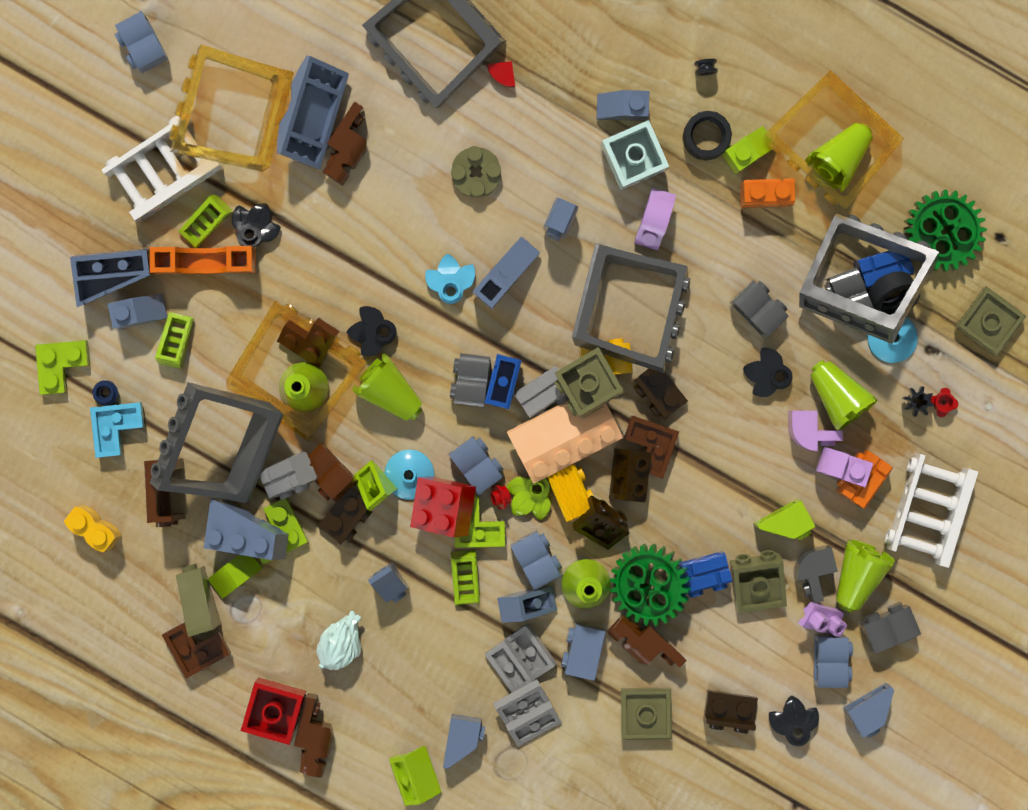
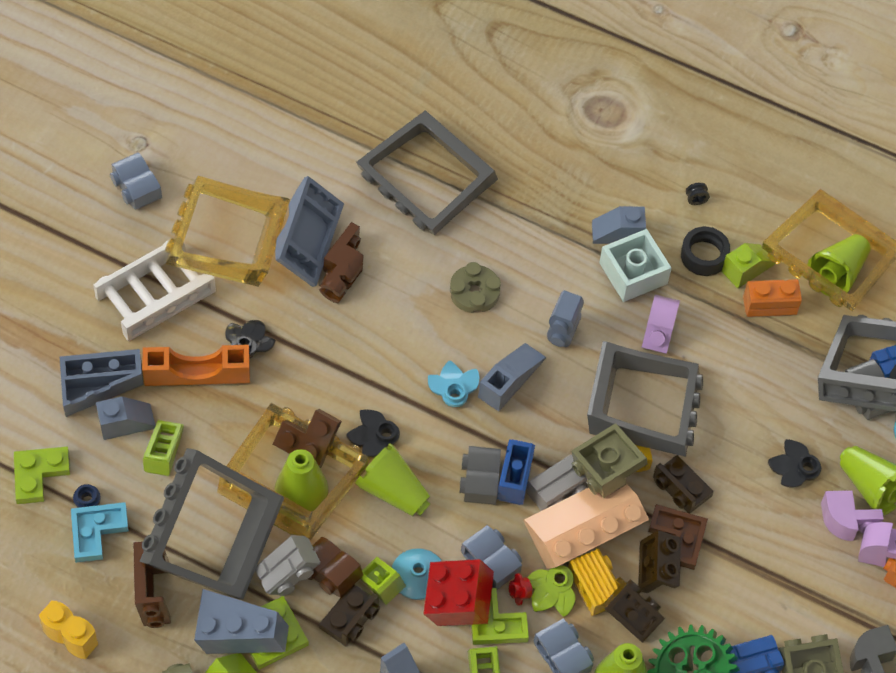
camera: 10 degrees left, 30 degrees down
(220, 205) = (197, 323): lime slope -> none
(502, 73) = (496, 203): red tile -> none
(759, 308) = (778, 402): dark grey brick -> none
(789, 521) = (835, 606): lime slope -> none

